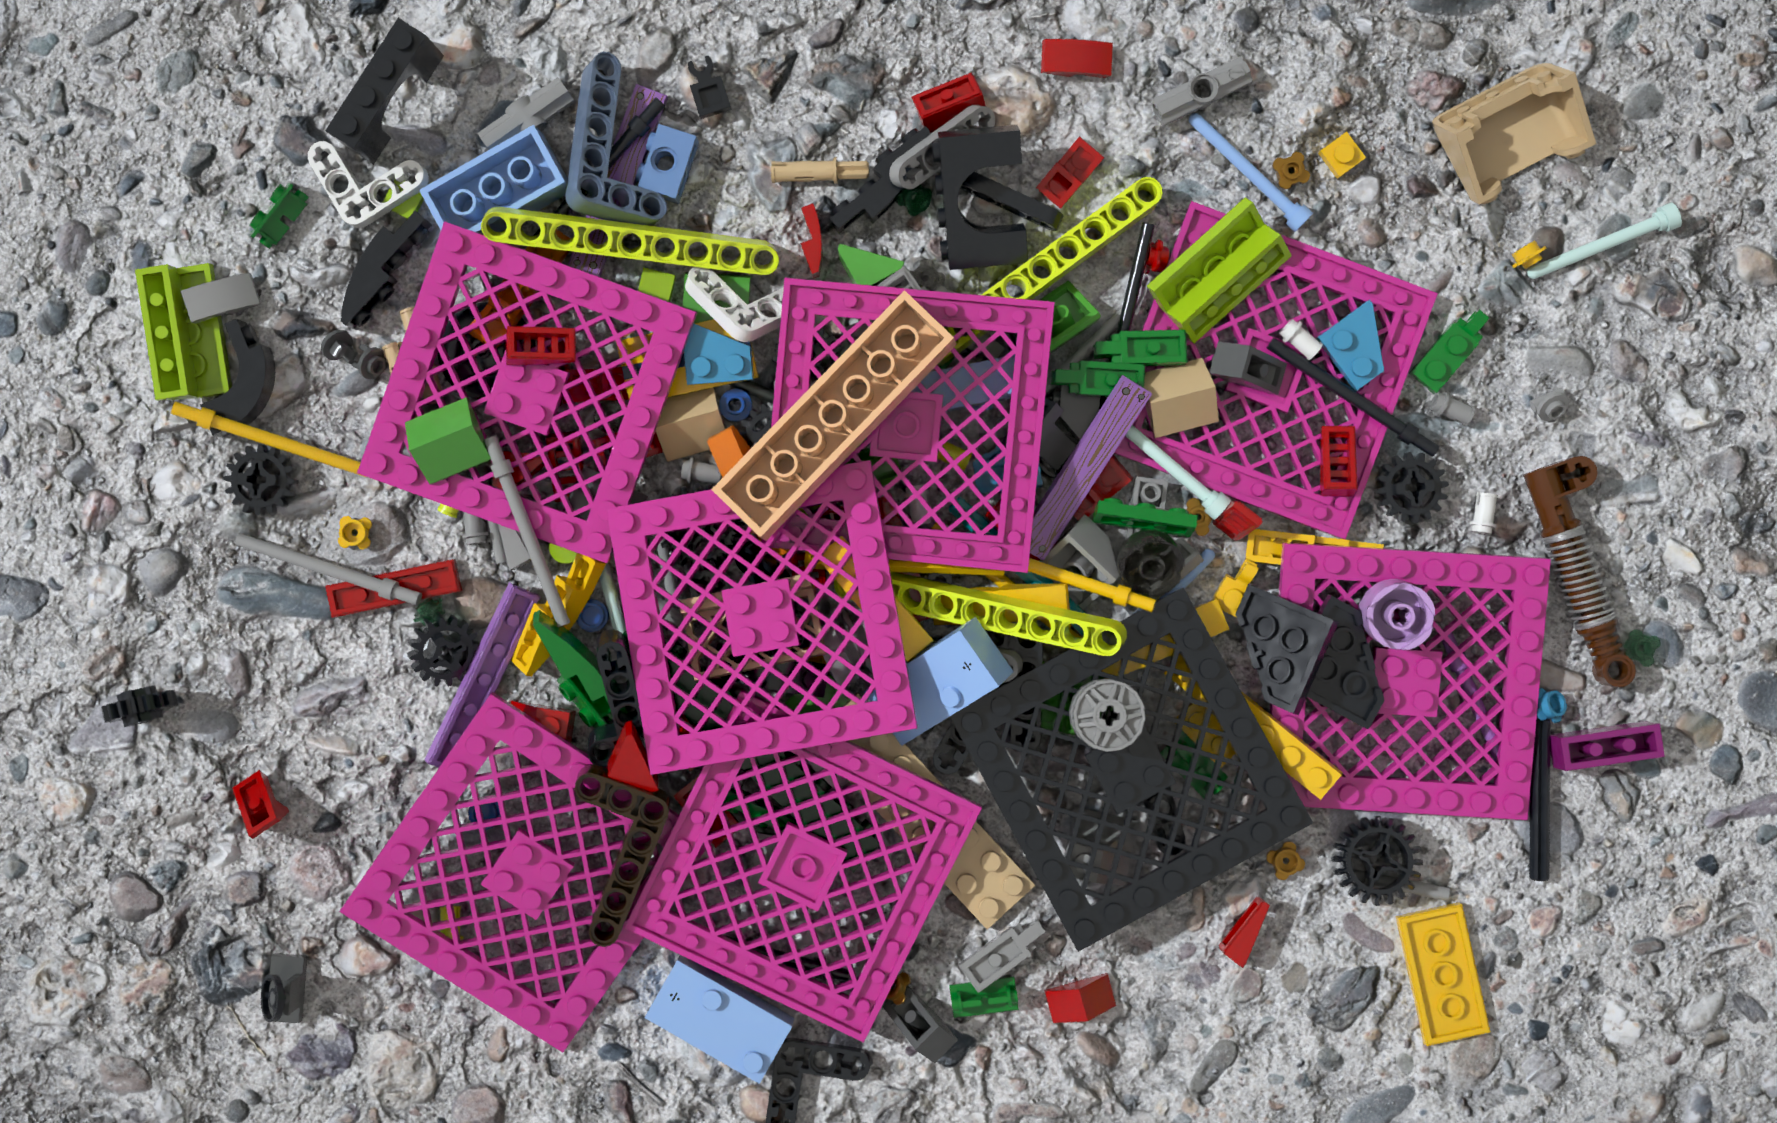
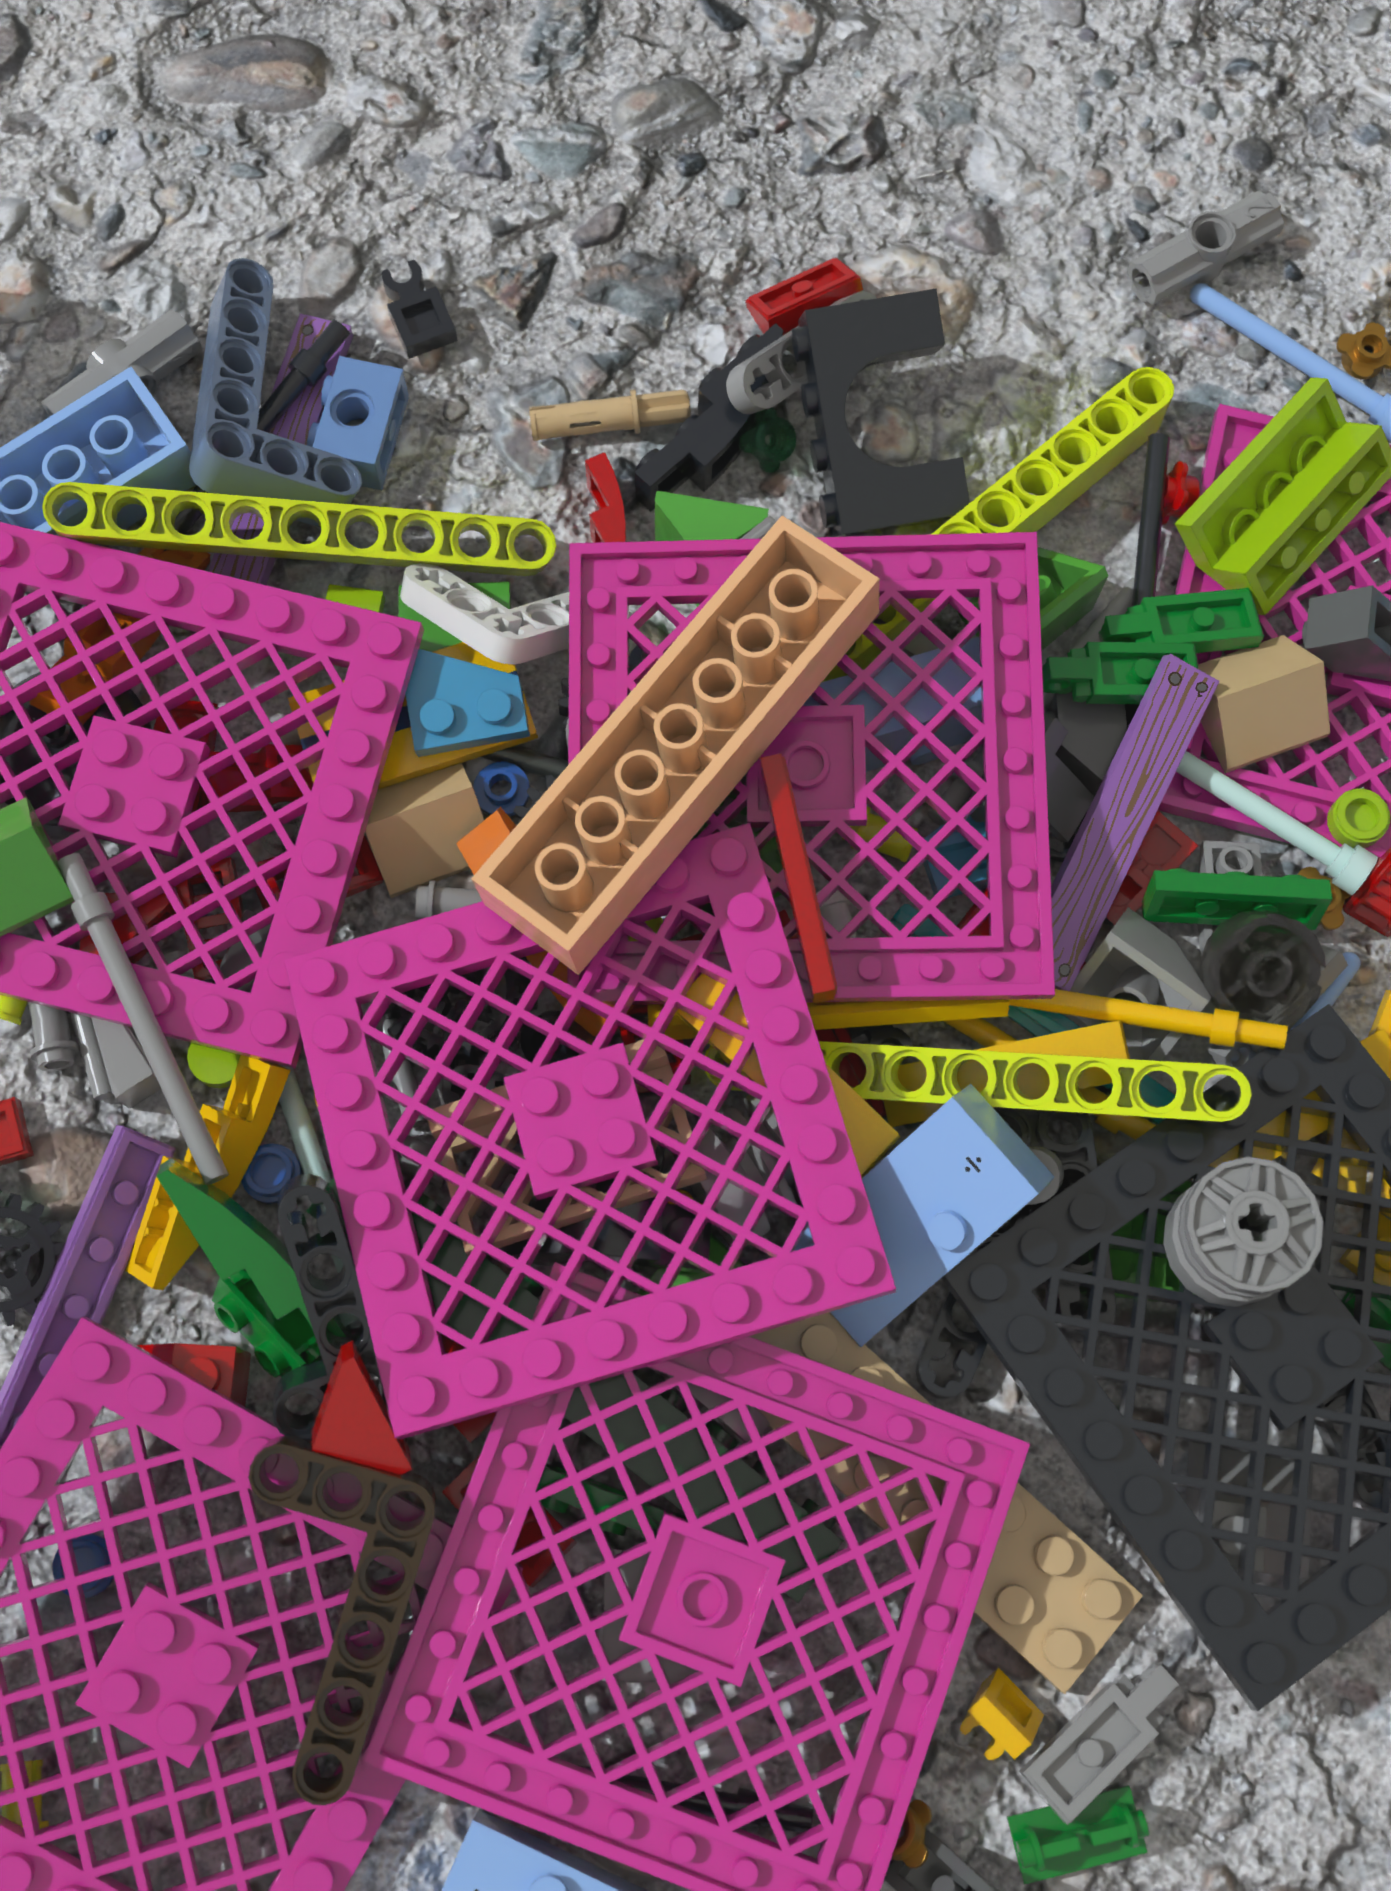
camera: 10 degrees left, 15 degrees down
(527, 357) = (134, 678): red slope -> none
(893, 496) = (798, 878): none -> red tile
(954, 936) = (1004, 1714): none -> yellow tile
(1012, 201) = (928, 430): black beam -> none
(1070, 172) = (1016, 384): red slope -> none
(1077, 57) = (998, 216): red slope -> none
(1080, 999) = (1262, 1819): red slope -> none
(1225, 475) = (1358, 818): none -> lime tile

